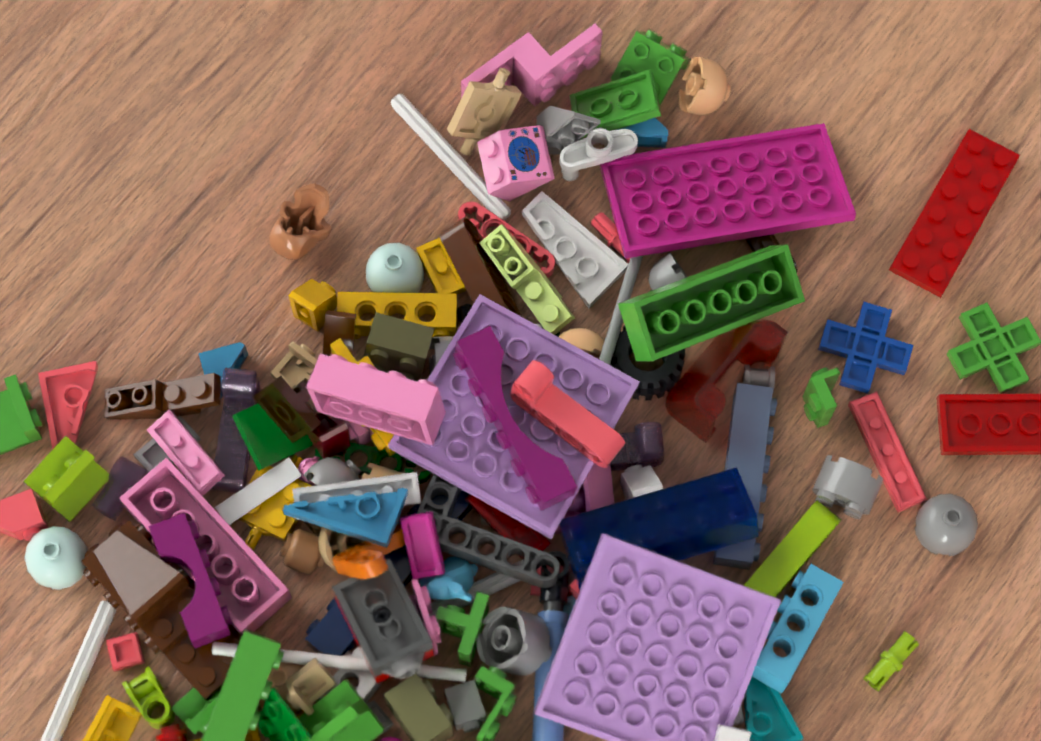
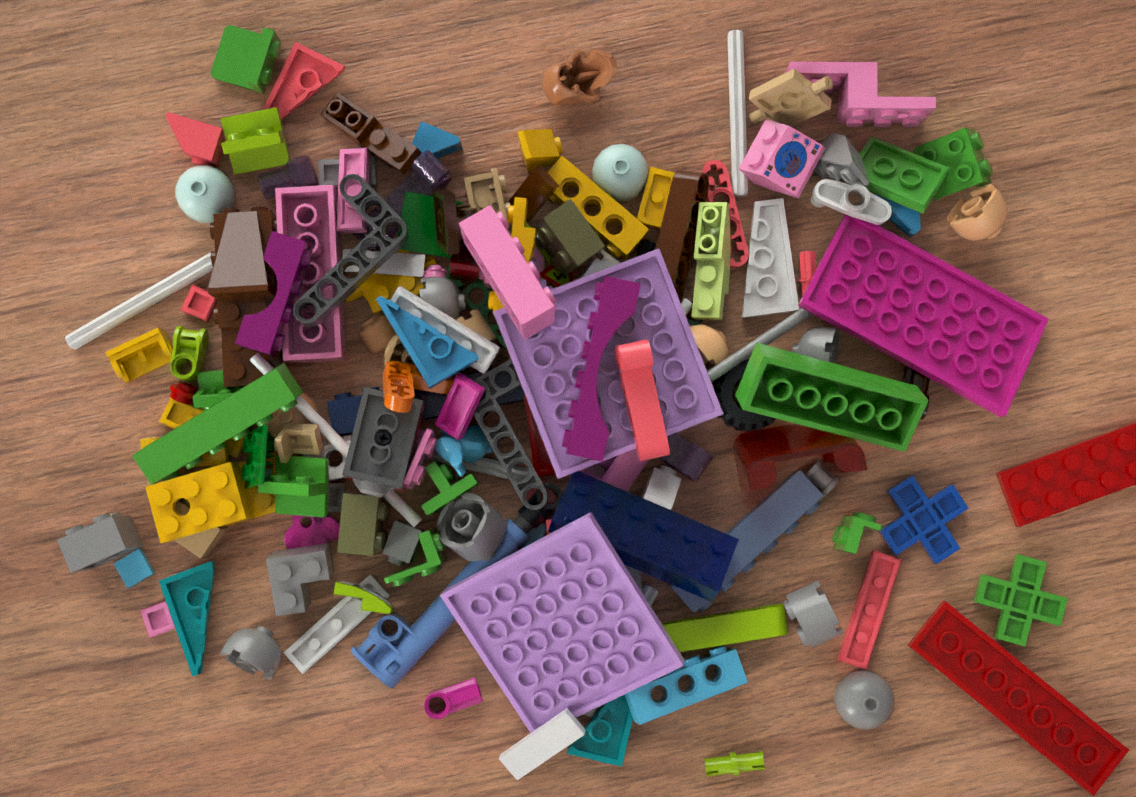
camera: 40 degrees right, 15 degrees up
(237, 495) = (357, 256): none -> dark grey beam

